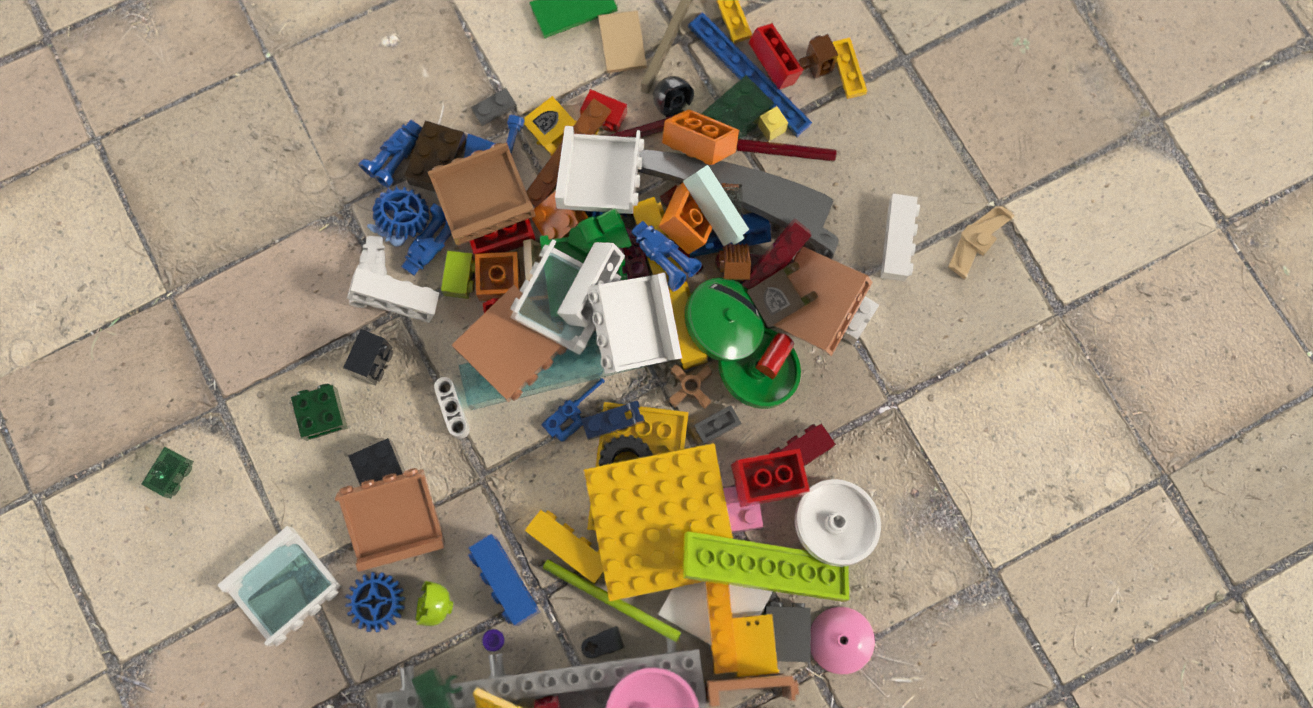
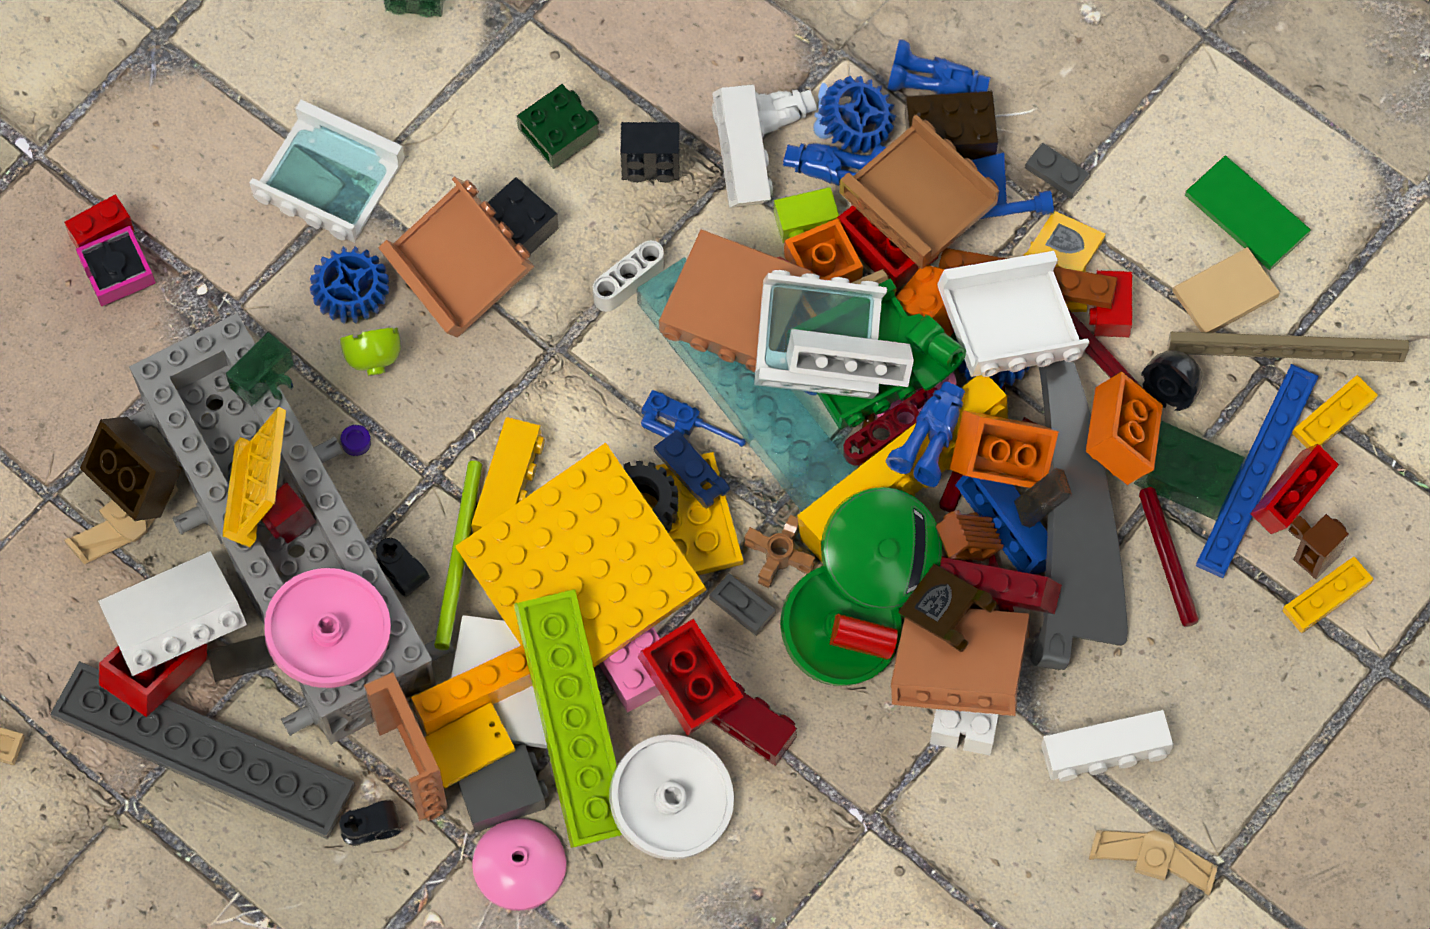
camera: 70 degrees right, 10 degrees down
(504, 580) = (433, 417): blue brick -> none
(634, 323) = (820, 427): white panel -> none
(716, 206) = (1026, 473): light aqua brick -> none
(772, 124) = (1194, 522): light yellow brick -> none

